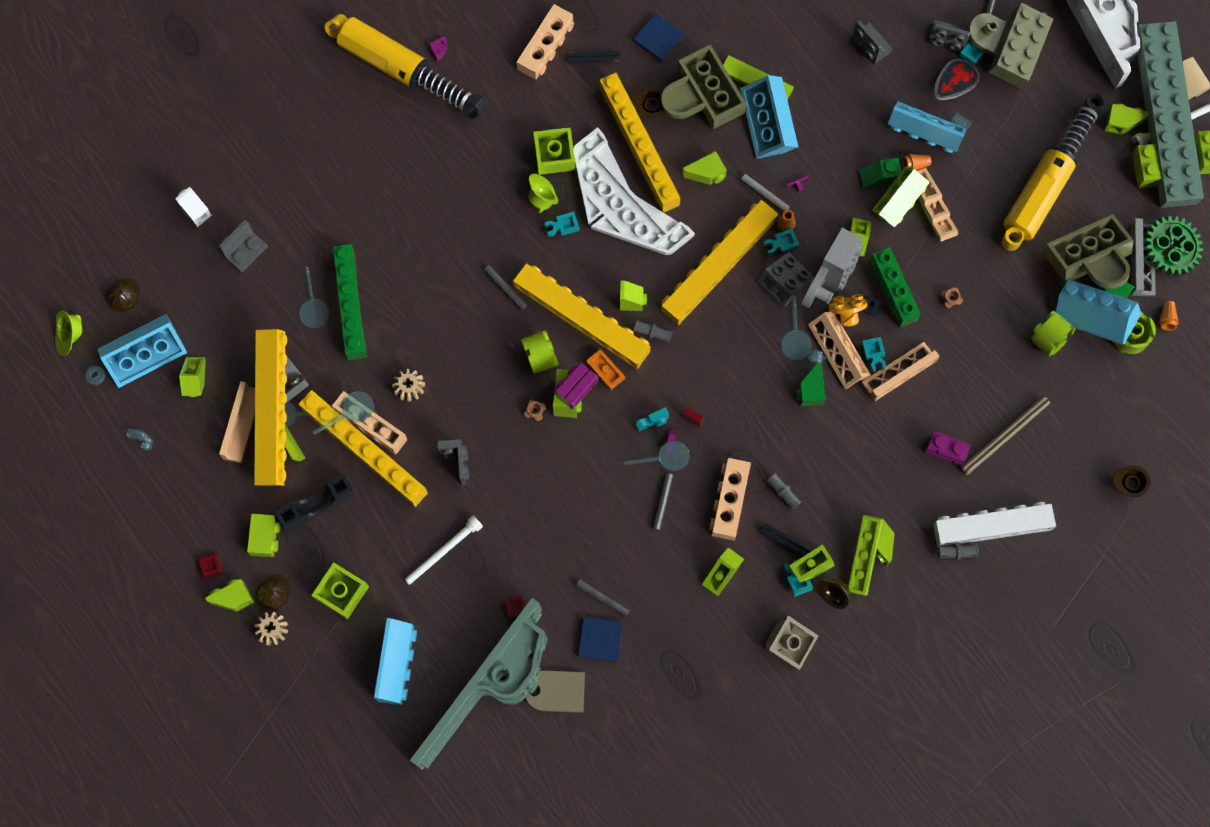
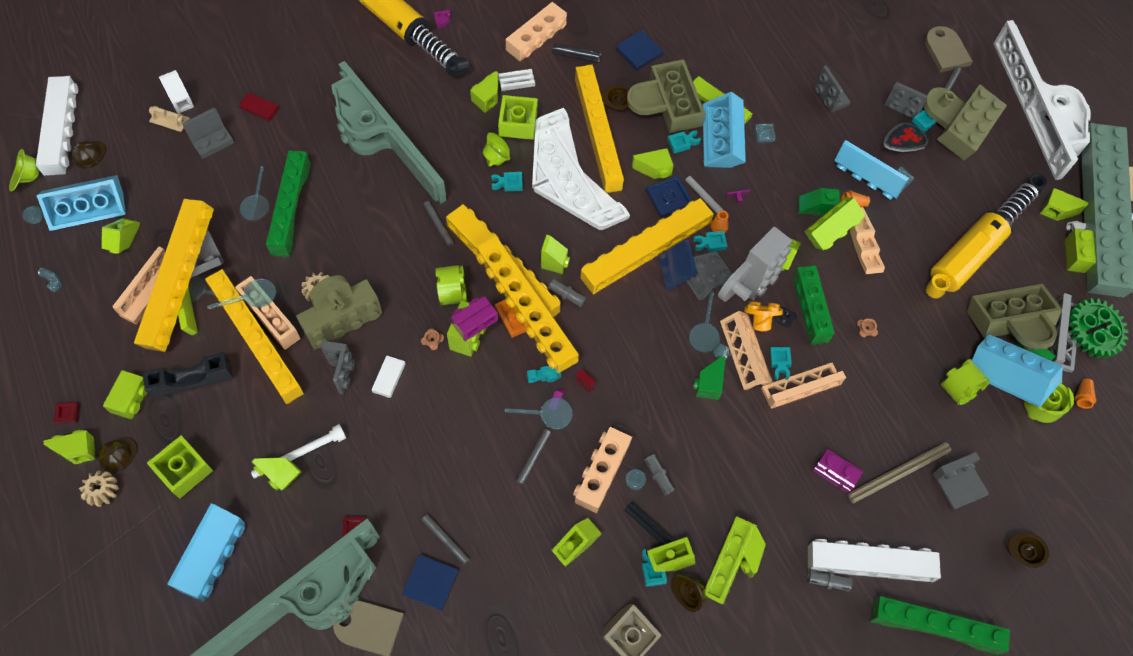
camera: 10 degrees right, 10 degrees down
(81, 273) = (57, 126): none -> white brick
(192, 237) = (167, 118): none -> tan hinge
(280, 200) = (259, 107): none -> dark red tile
(405, 200) = (363, 117): none -> sand green piece
(432, 571) = (278, 470): none -> lime slope
(439, 405) = (338, 309): none -> olive brick
(504, 457) = (388, 376): none -> white tile
(513, 129) = (486, 92): none -> lime slope
(555, 104) = (516, 77): none -> white tile
(573, 307) = (493, 250): none -> yellow brick
(727, 138) = (682, 142): none -> teal plate
(728, 202) = (668, 196): none -> dark blue tile
(754, 277) = (677, 264): none -> dark blue tile
(762, 500) = (635, 479): none -> clear light blue plate
(811, 106) = (765, 133): none -> clear light blue plate
(1061, 567) = (917, 618): none -> green arch
(1063, 431) = (961, 482): none -> dark grey bracket

